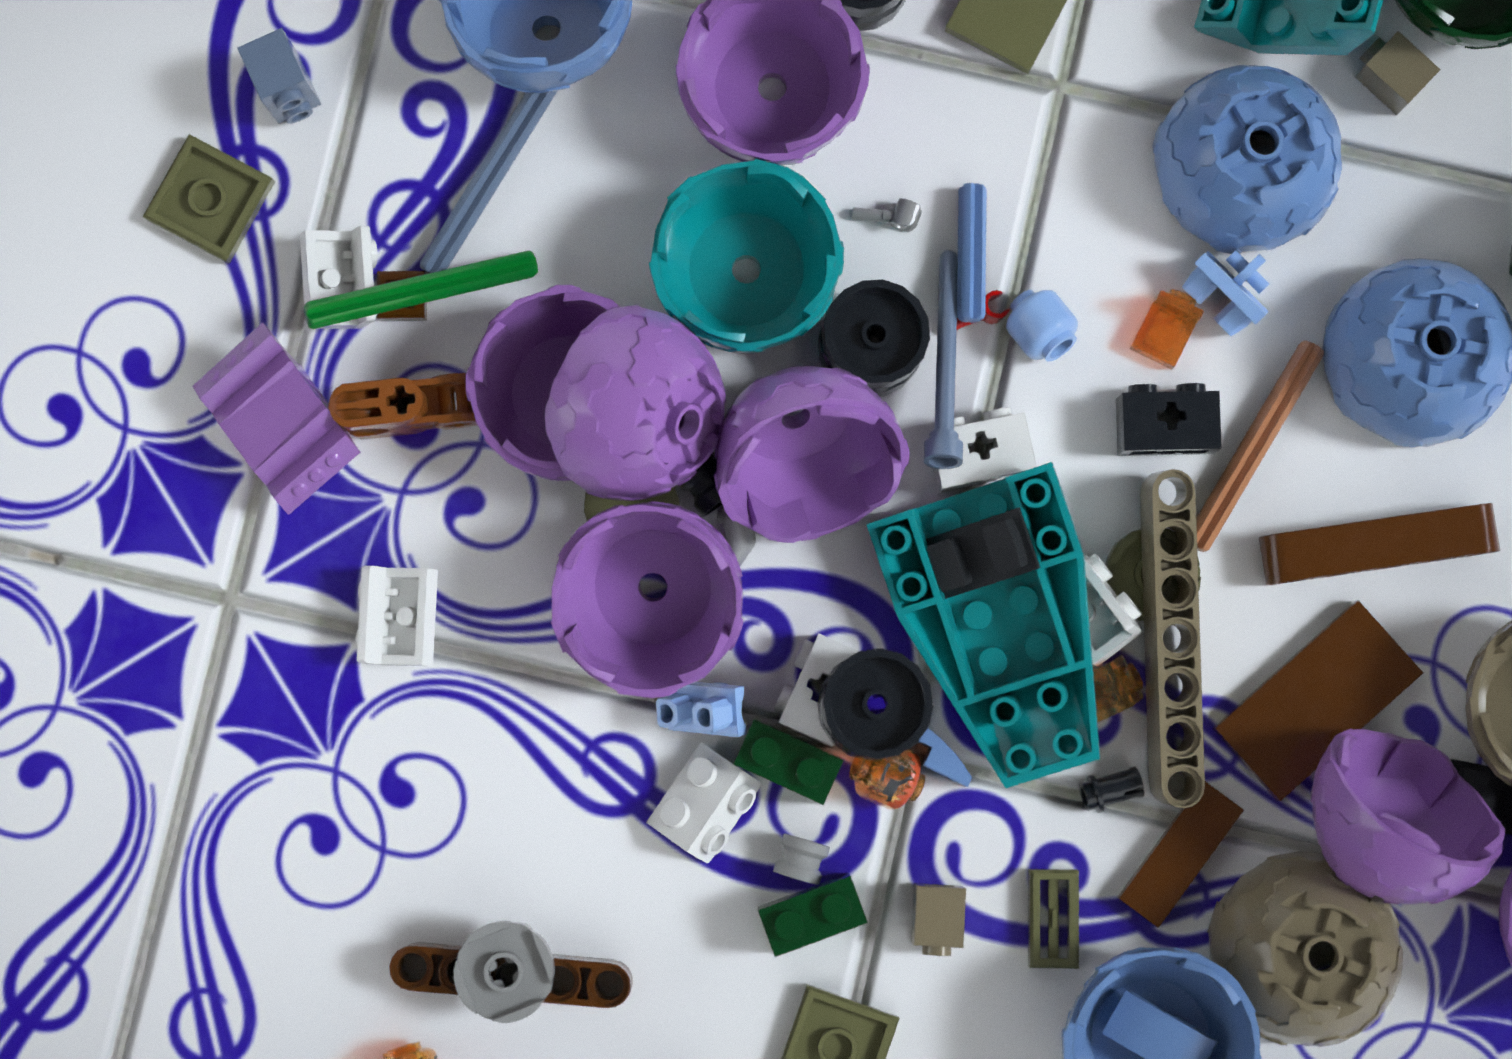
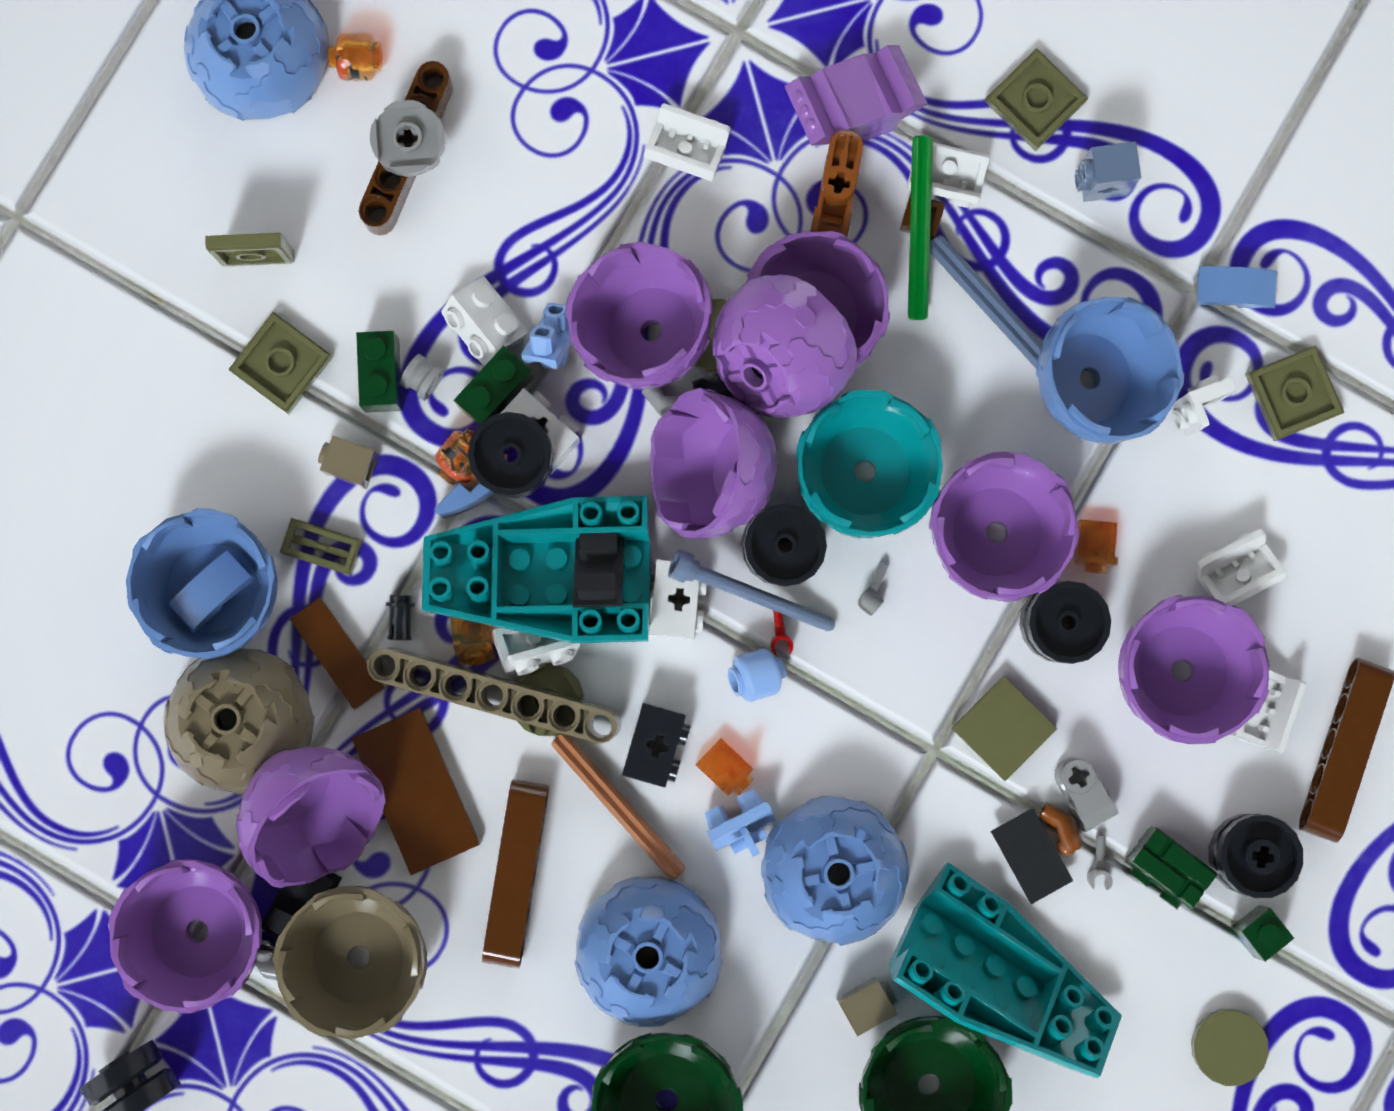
camera: 105 degrees right, 0 degrees up
(971, 253) = (826, 640): medium blue axle -> none

